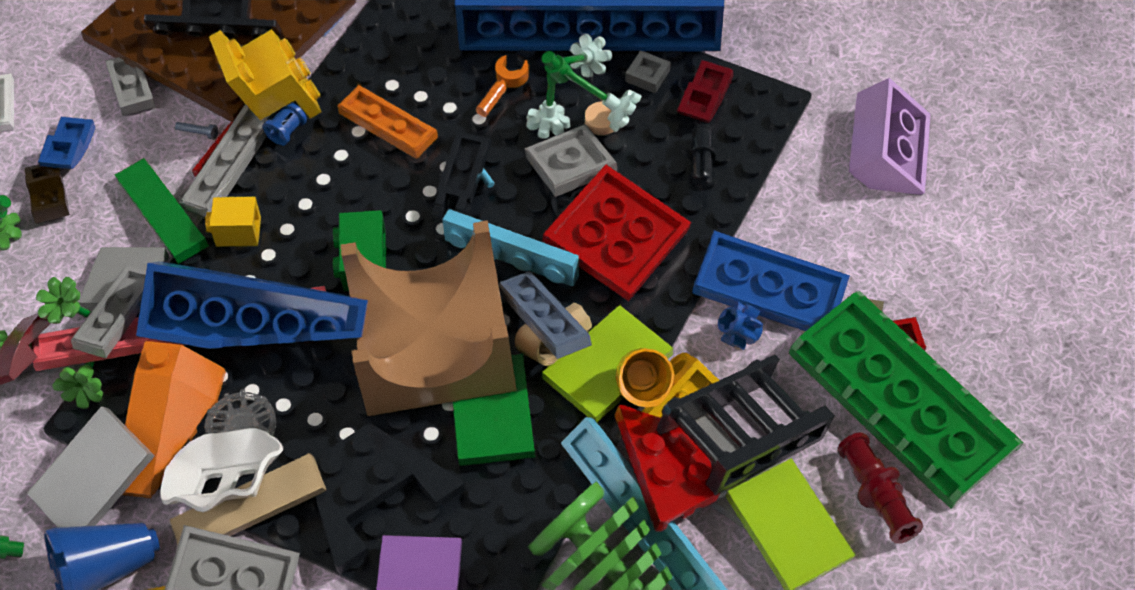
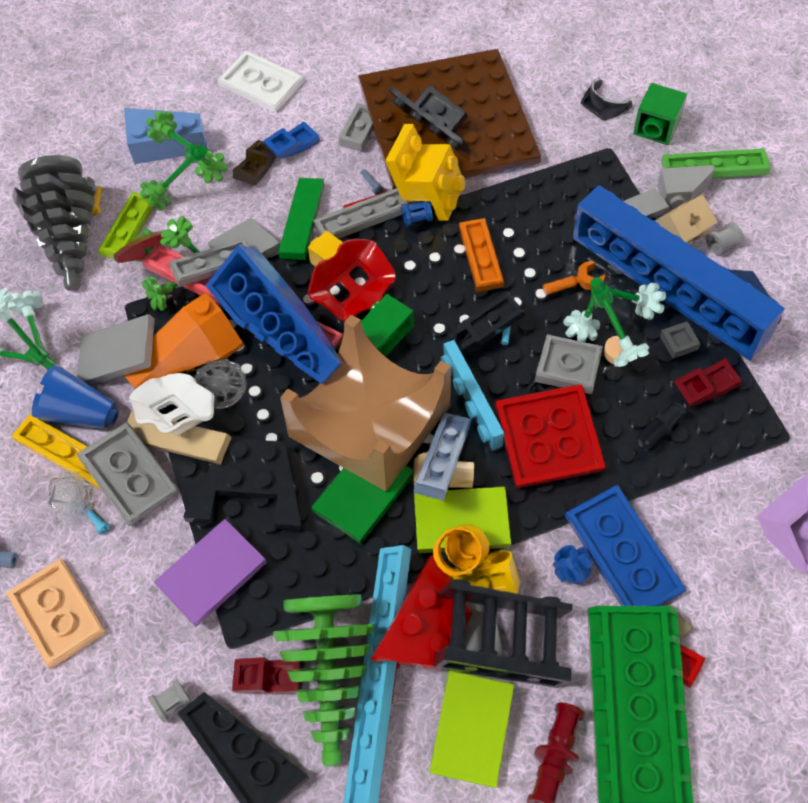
camera: 45 degrees right, 5 degrees up
(311, 231) = (337, 269): none -> red piece

